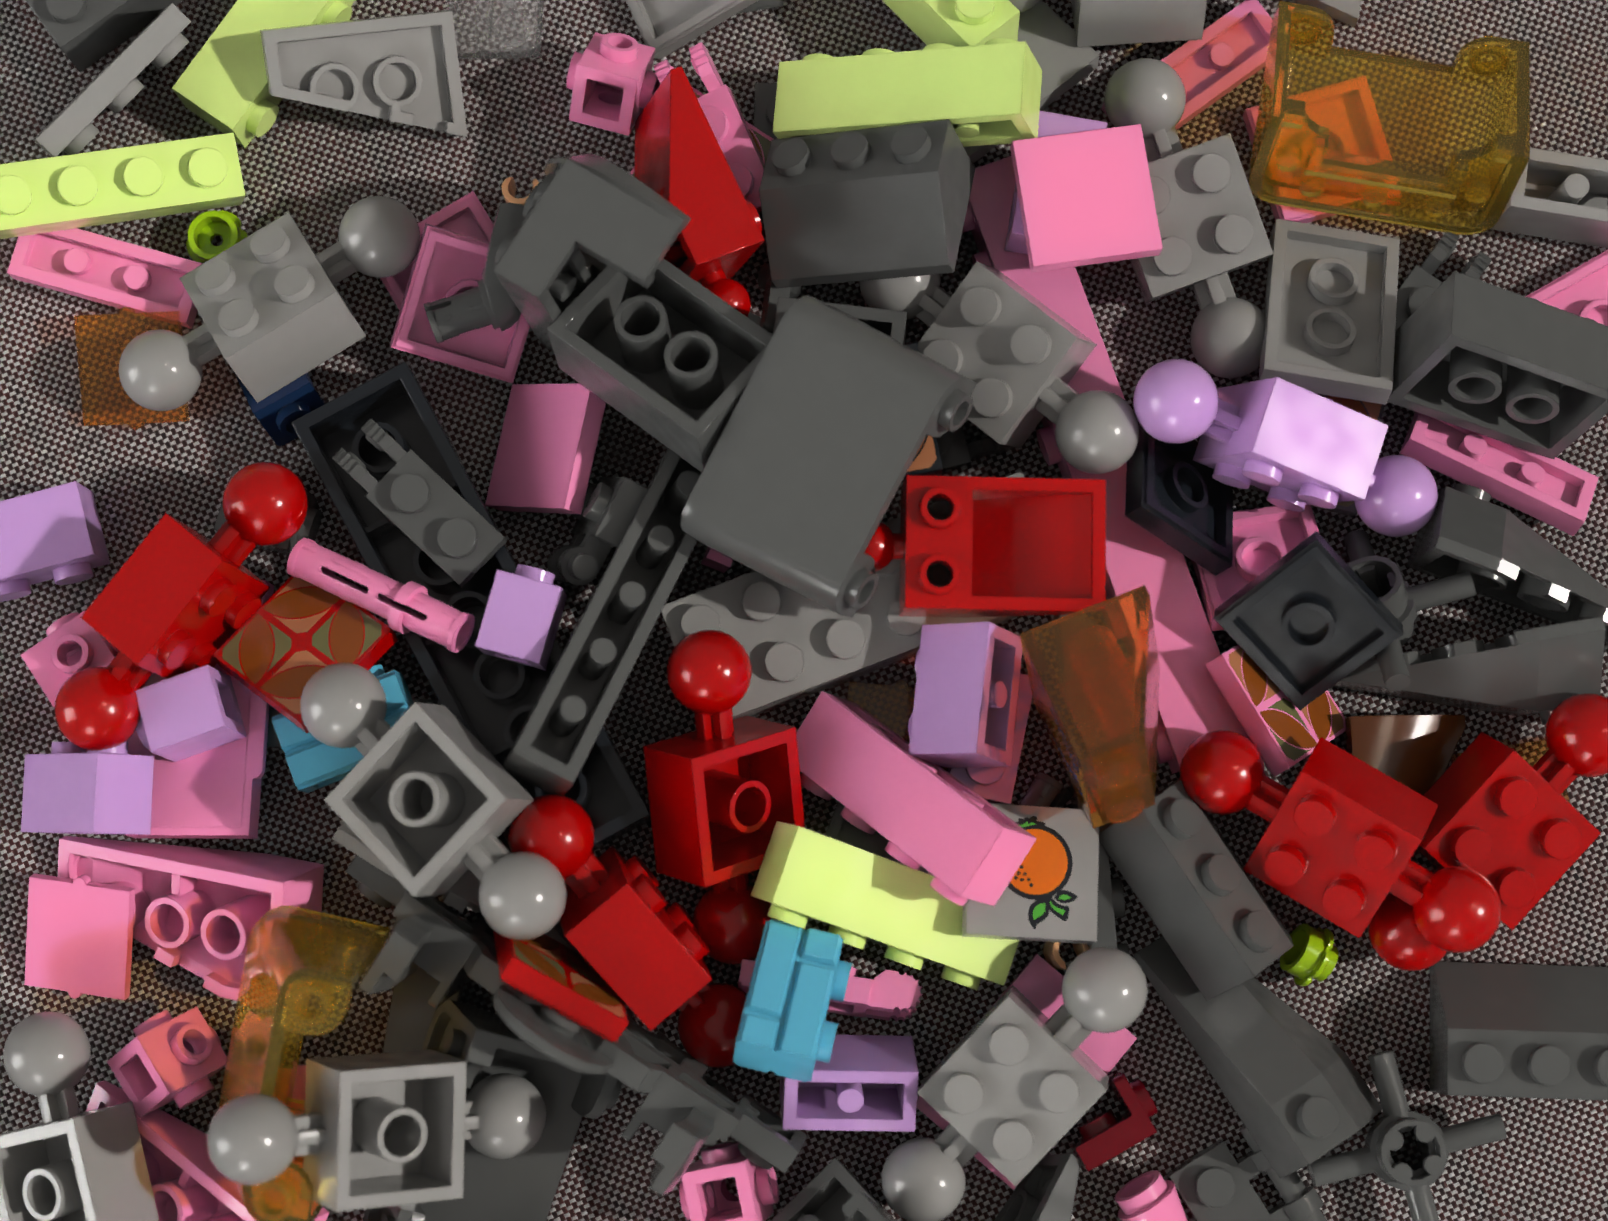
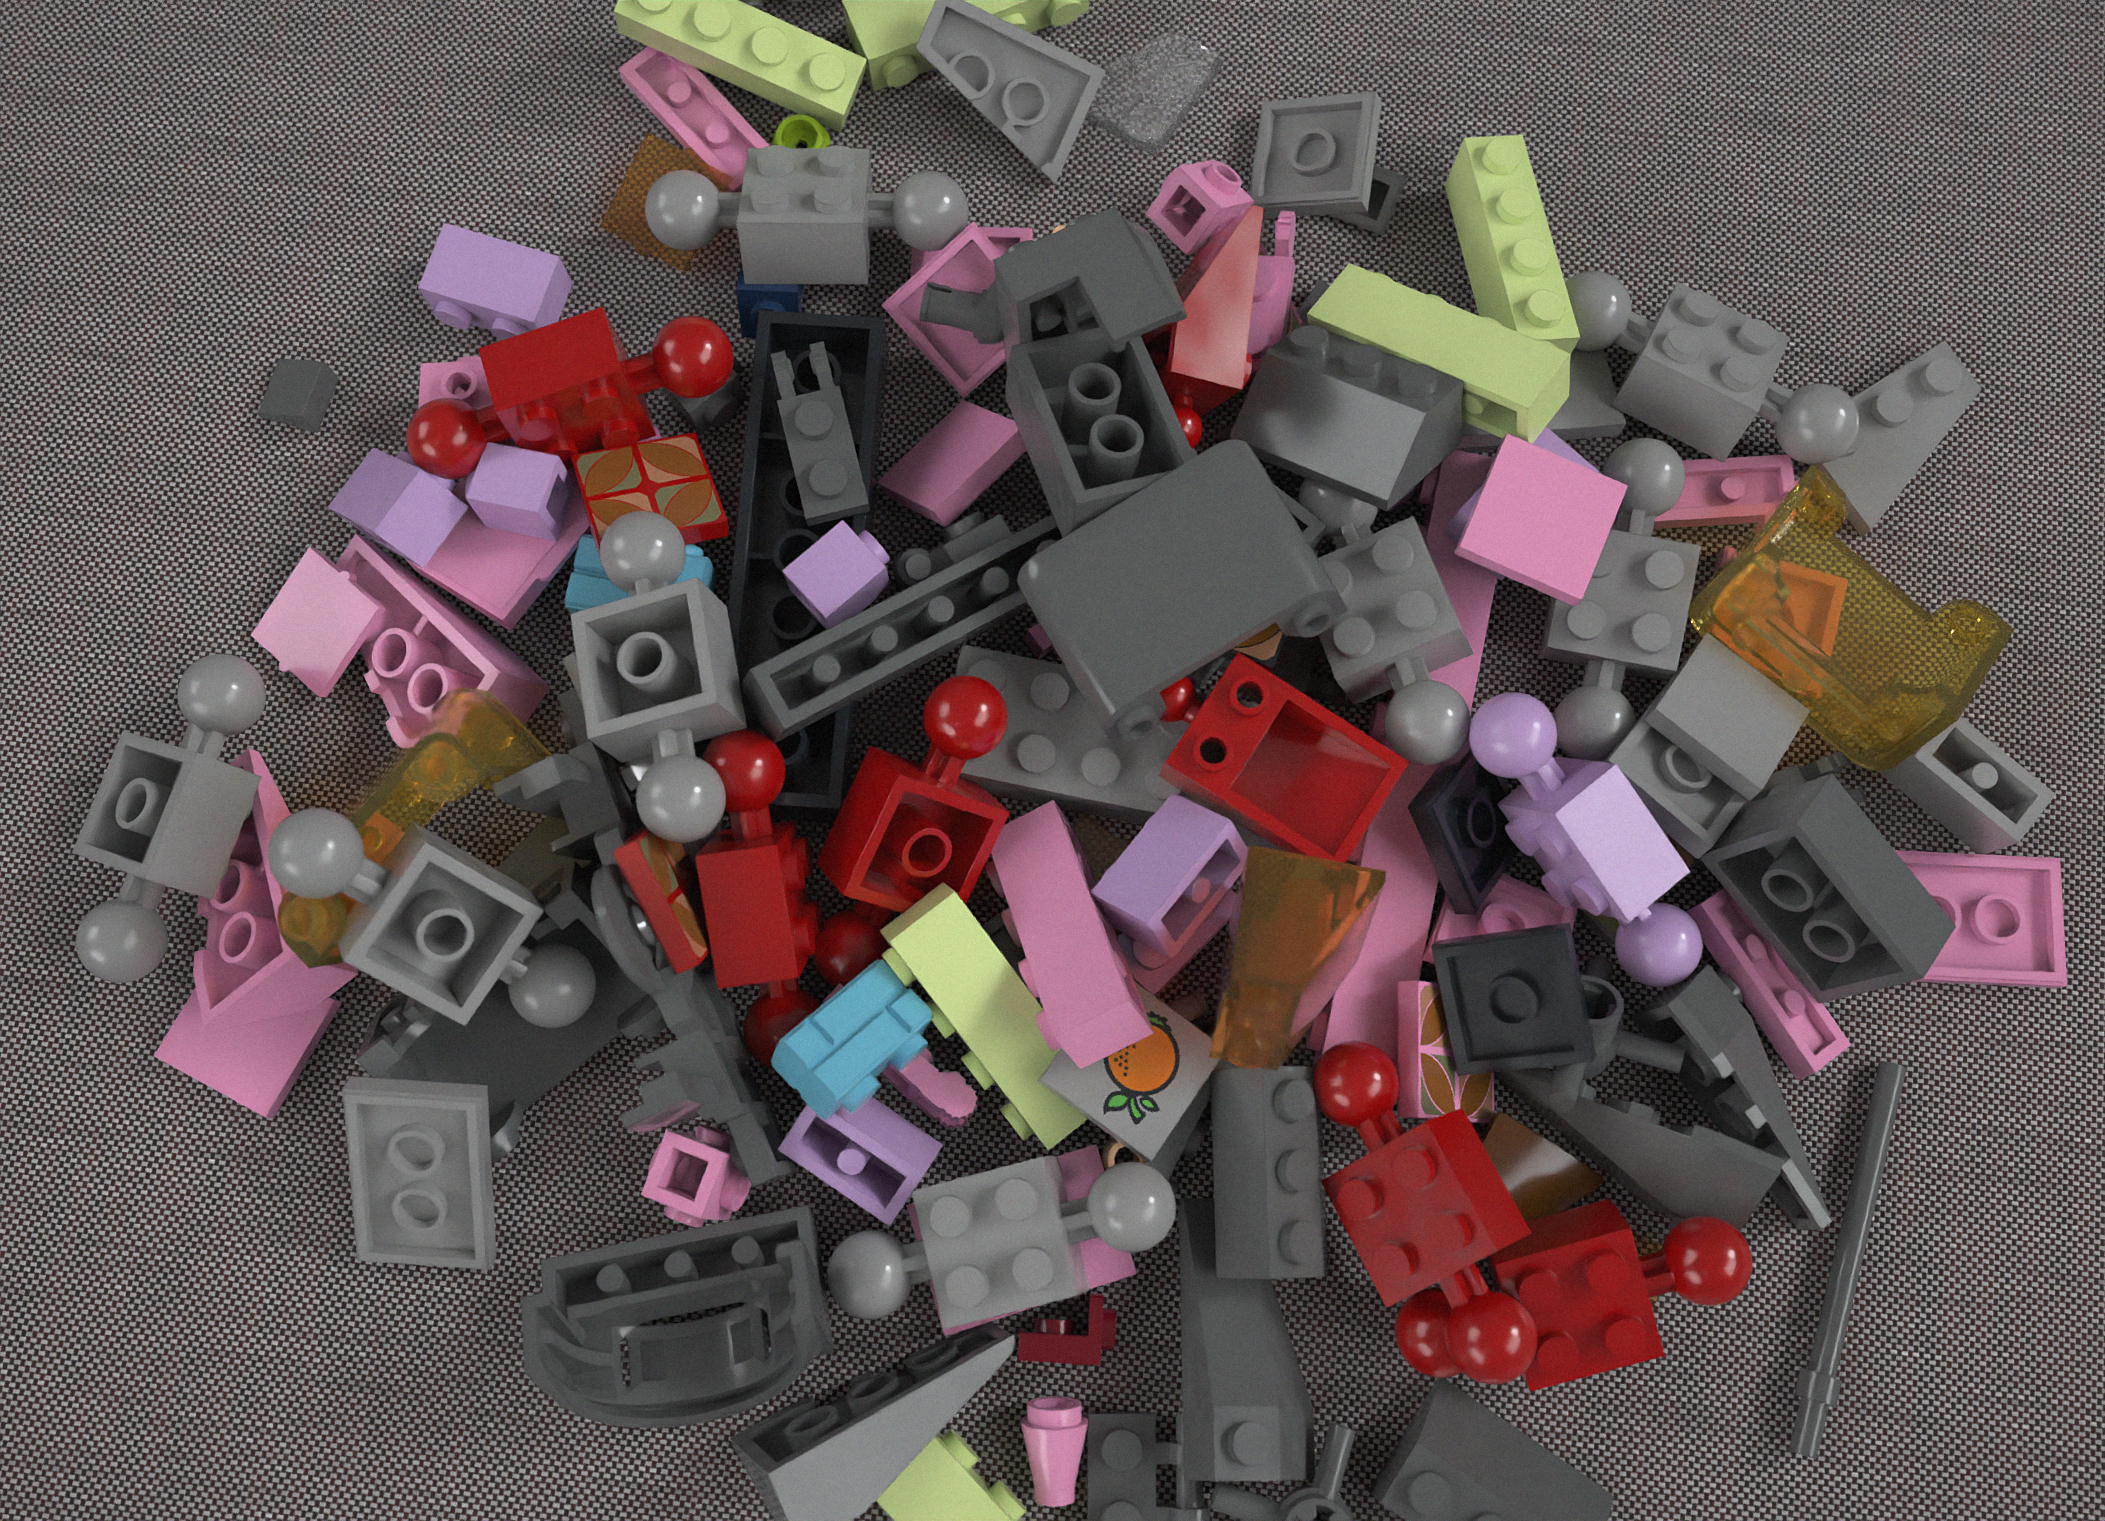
camera: 30 degrees right, 5 degrees down
(169, 1061) = (315, 764): bright pink brick -> none
(442, 622) = (770, 538): bright pink pin -> none
(1311, 955) = (1334, 1299): lime plate -> none
(1337, 263) = (1727, 716): none -> light grey tile

